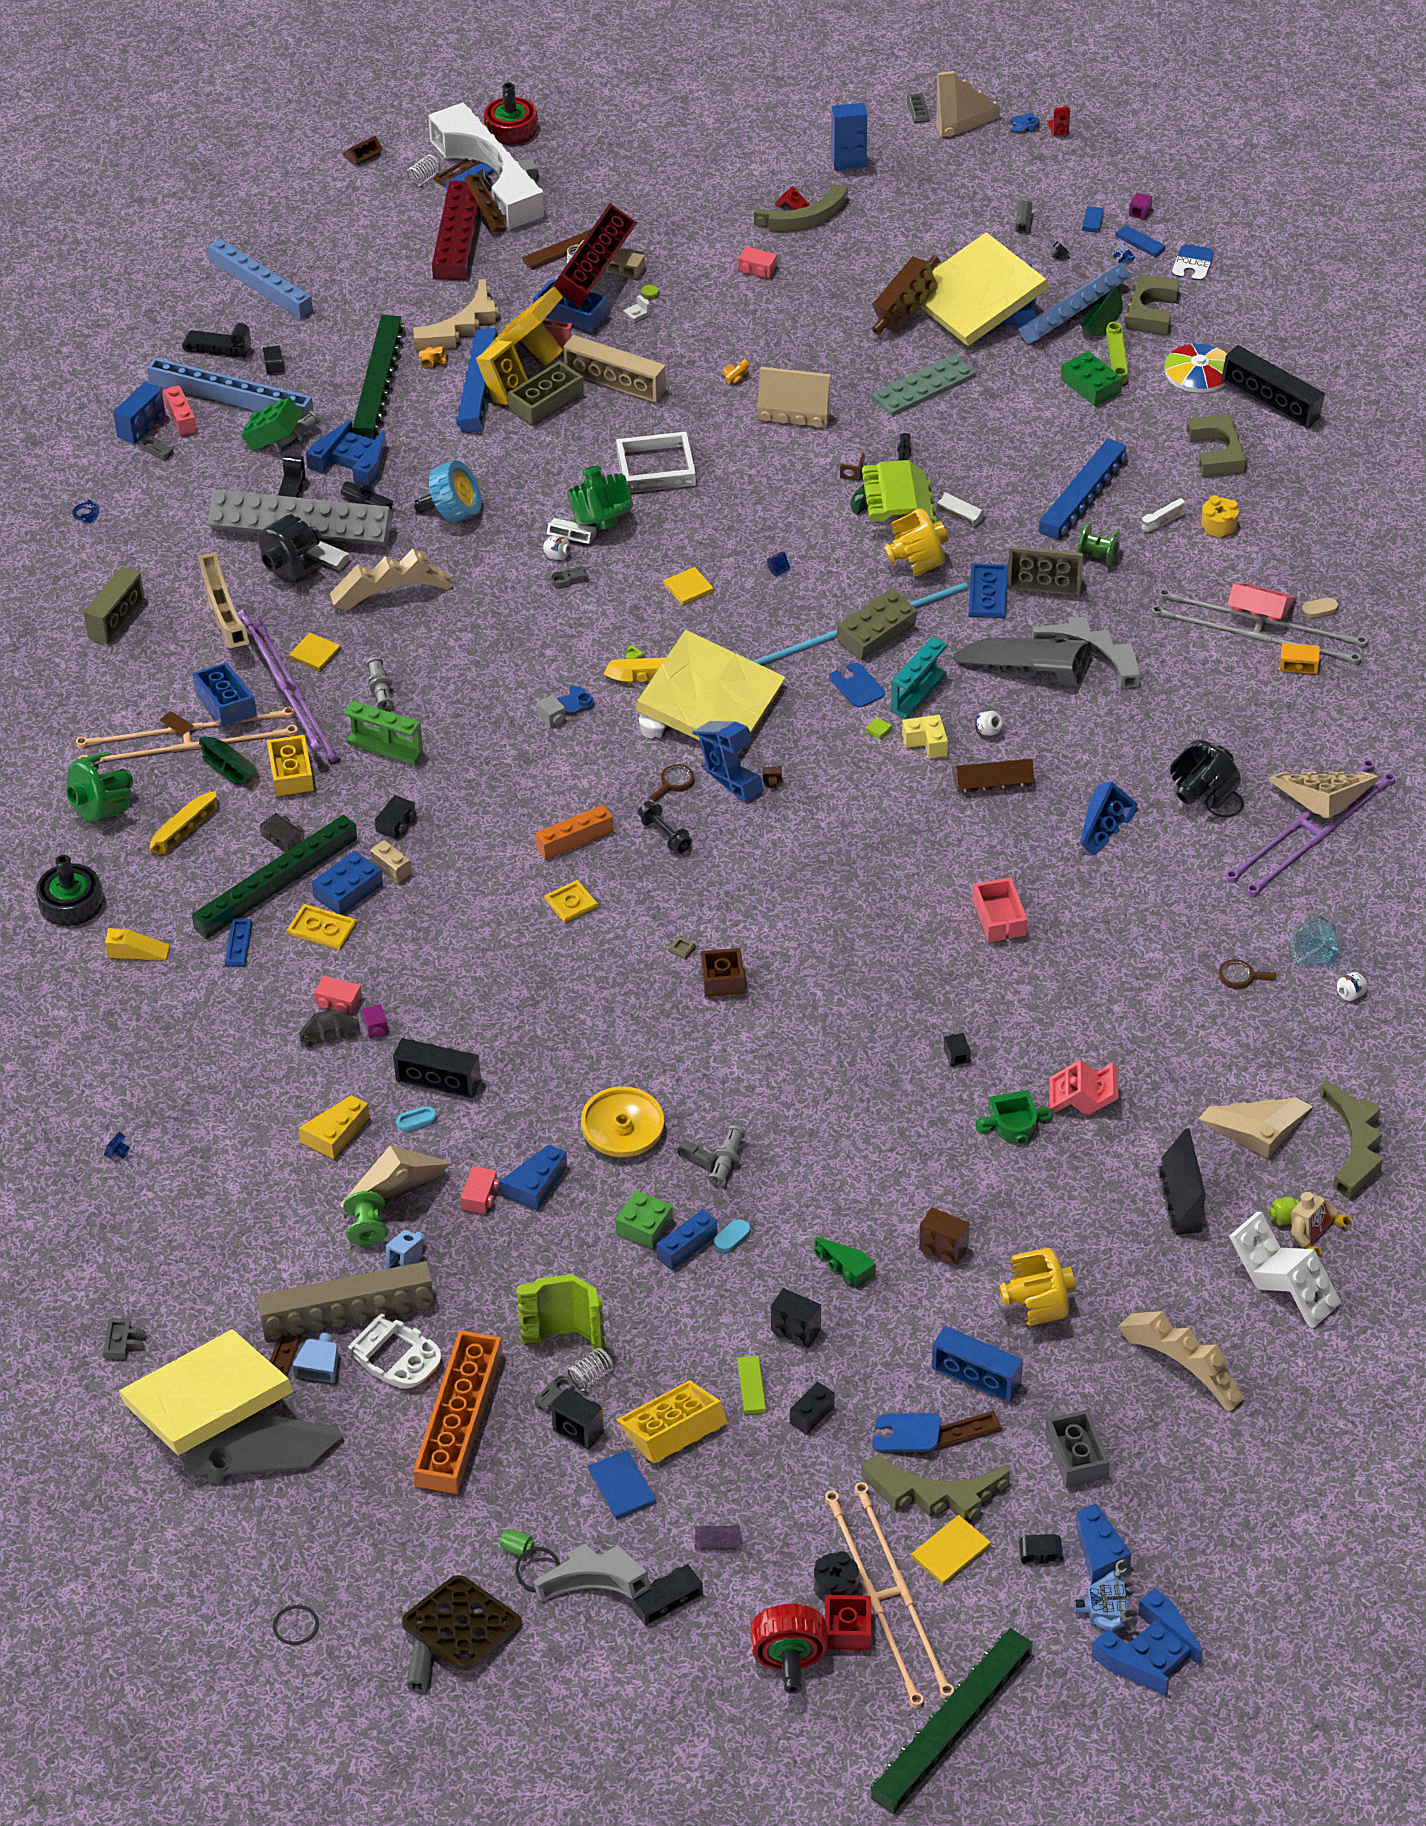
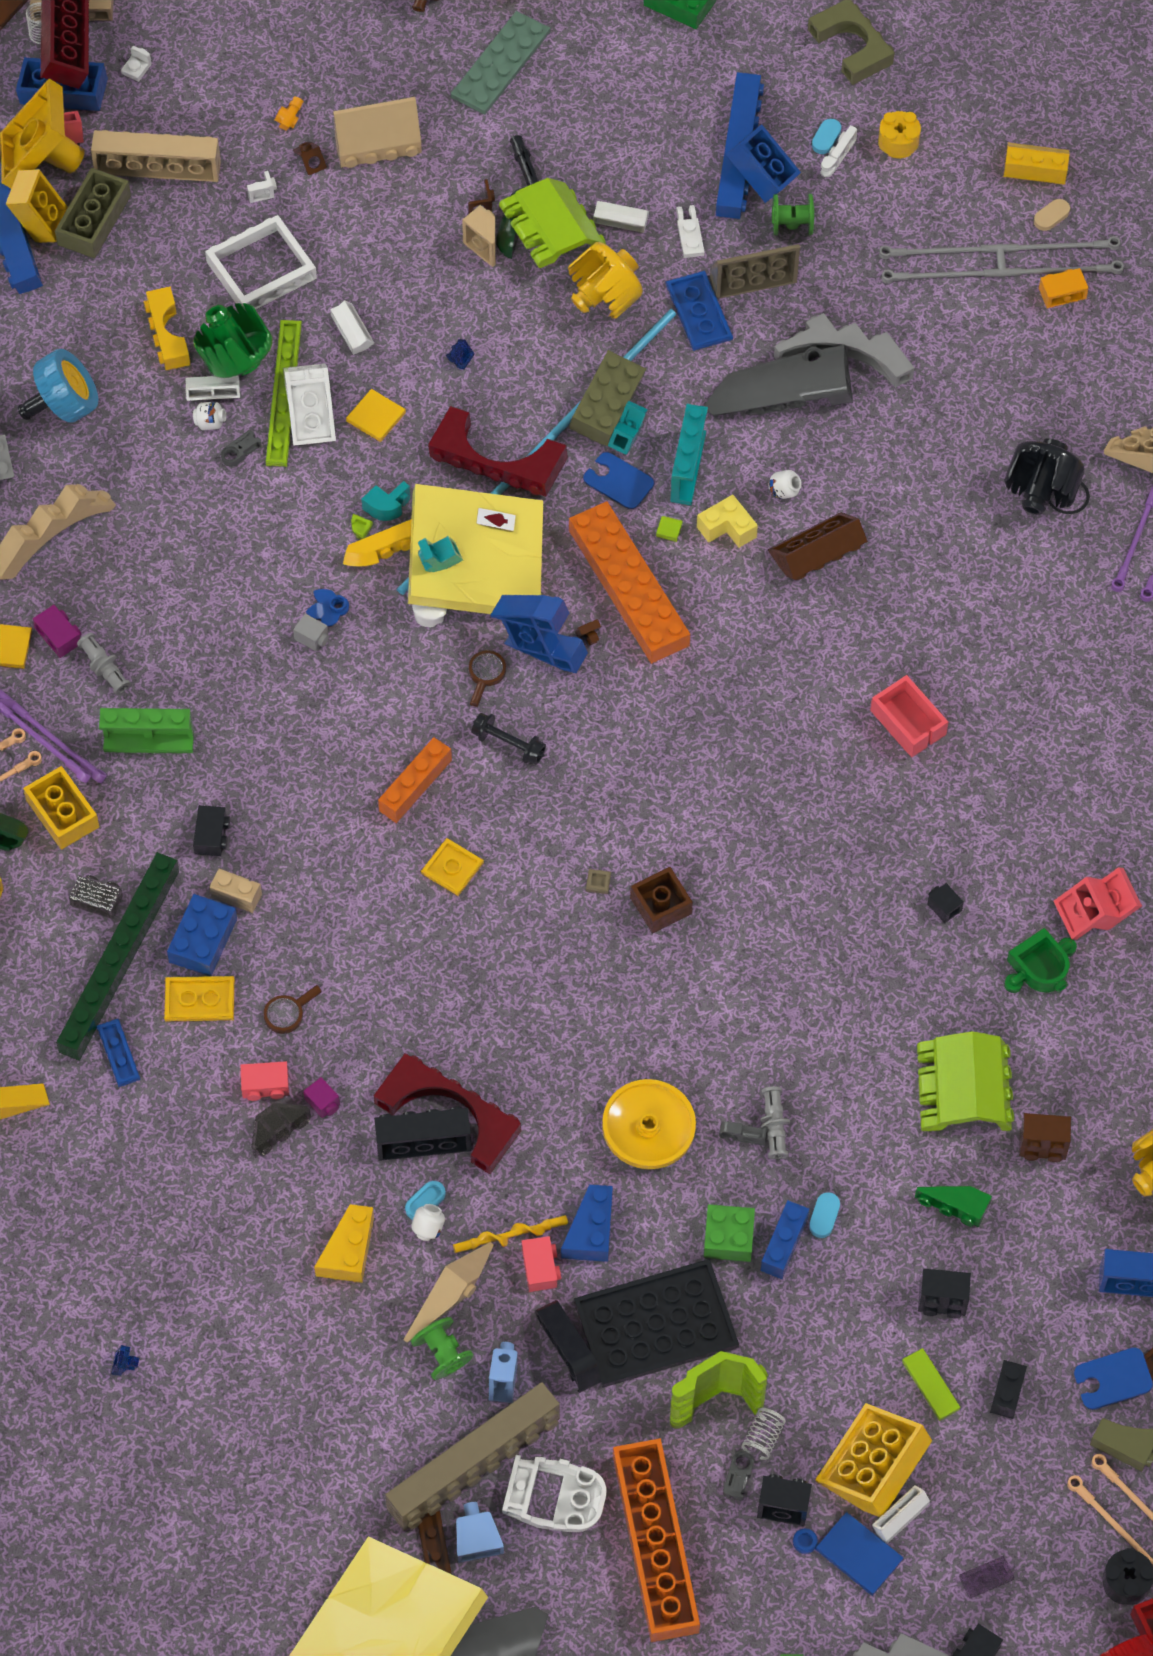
camera: 25 degrees left, 15 degrees up
(118, 1337) = (249, 1595): dark grey hinge -> none
(357, 651) = (57, 631): none -> magenta brick
(383, 957) = (285, 1013): none -> piece
(407, 1131) = (428, 1222): none -> white head
(462, 1164) = (517, 1229): none -> yellow piece
(468, 1255) = (569, 1345): none -> black beam
(498, 1085) = (413, 1080): none -> dark red arch
(530, 1252) = (656, 1322): none -> black plate
(555, 497) = (173, 349): none -> yellow arch
(582, 1459) = (805, 1541): none -> blue tile
(625, 551) = (280, 423): none -> lime tile
(637, 559) = (309, 404): none -> white bracket
(649, 292) = (136, 34): lime tile -> none
(657, 644) = (384, 505): none -> teal brick
(671, 1467) = (901, 1514): none -> white piece
(673, 680) = (439, 555): none -> teal brick
(685, 415) = (262, 190): none -> white bracket
(703, 522) = (351, 327): none -> white piece
(736, 398) = (308, 150): none -> reddish brown bracket
(738, 675) = (496, 519): none -> white sticker
(786, 655) = (532, 473): none -> dark red arch
(823, 752) = (629, 582): none -> orange brick
(839, 487) = (480, 234): none -> tan slope
(883, 649) = (628, 428): none -> teal brick
(905, 1175) = (966, 1080): none -> lime hinge
(1010, 536) = (690, 233): none -> white hinge
(1092, 500) = (763, 163): none -> blue brick
(1105, 814) = (957, 550): blue wedge -> none
(1159, 502) = (826, 136): none -> medium azure tile
(1260, 601) = (993, 228): coral slope -> none
(1324, 568) = (1036, 163): none -> yellow slope

